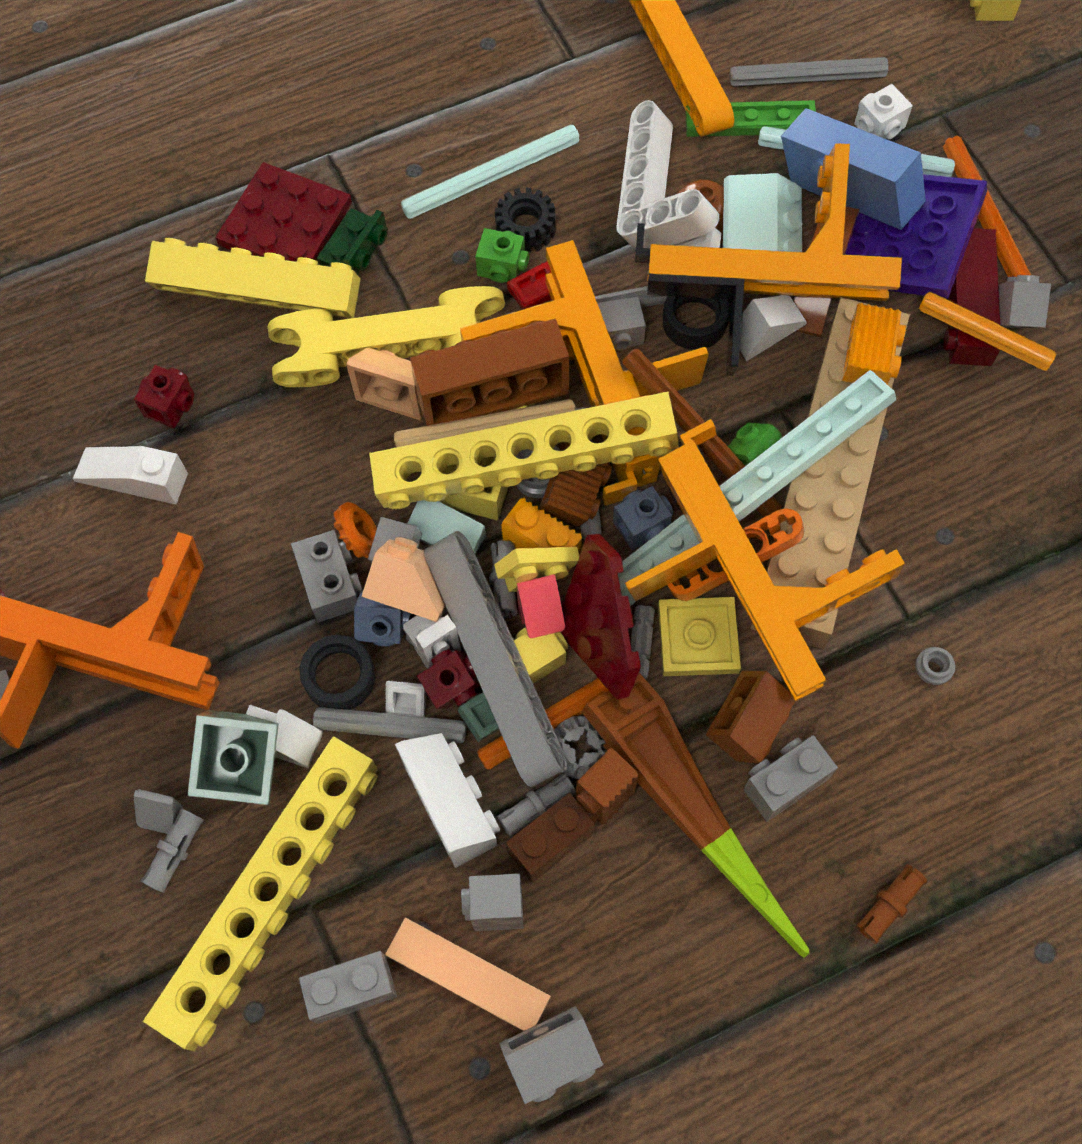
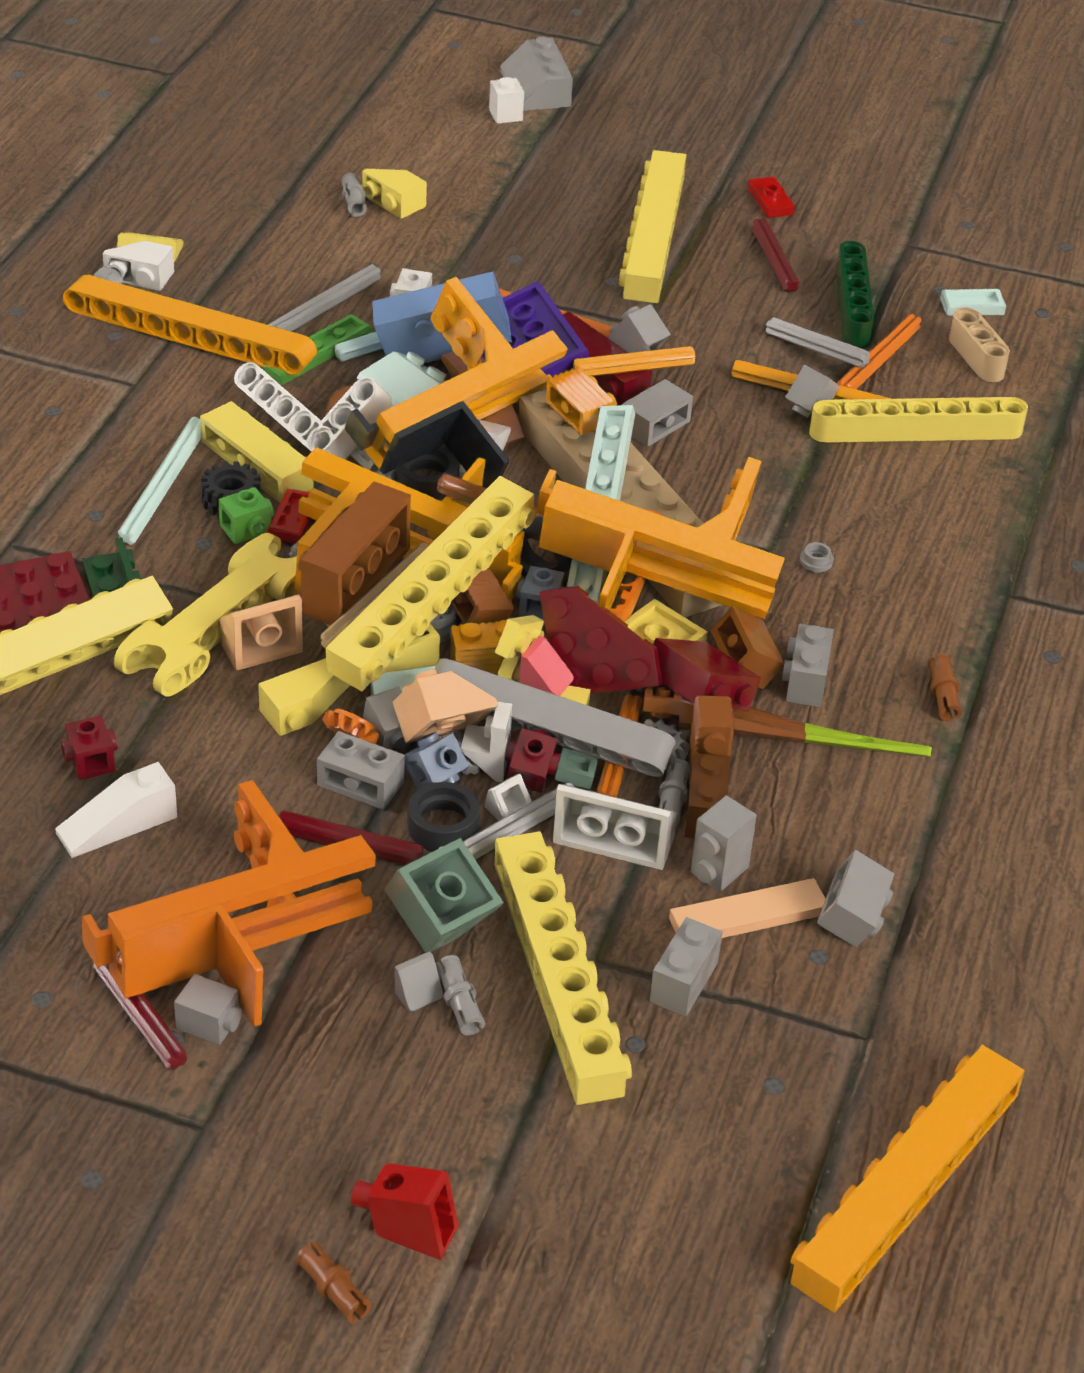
camera: 50 degrees left, 25 degrees down
(258, 632) = (330, 833): none -> dark red axle
(347, 467) = (299, 696): none -> light yellow slope
(582, 193) = (243, 439): none -> light yellow brick
(671, 718) = (703, 670): none -> dark red brick
(962, 395) = (659, 412): none -> light grey brick

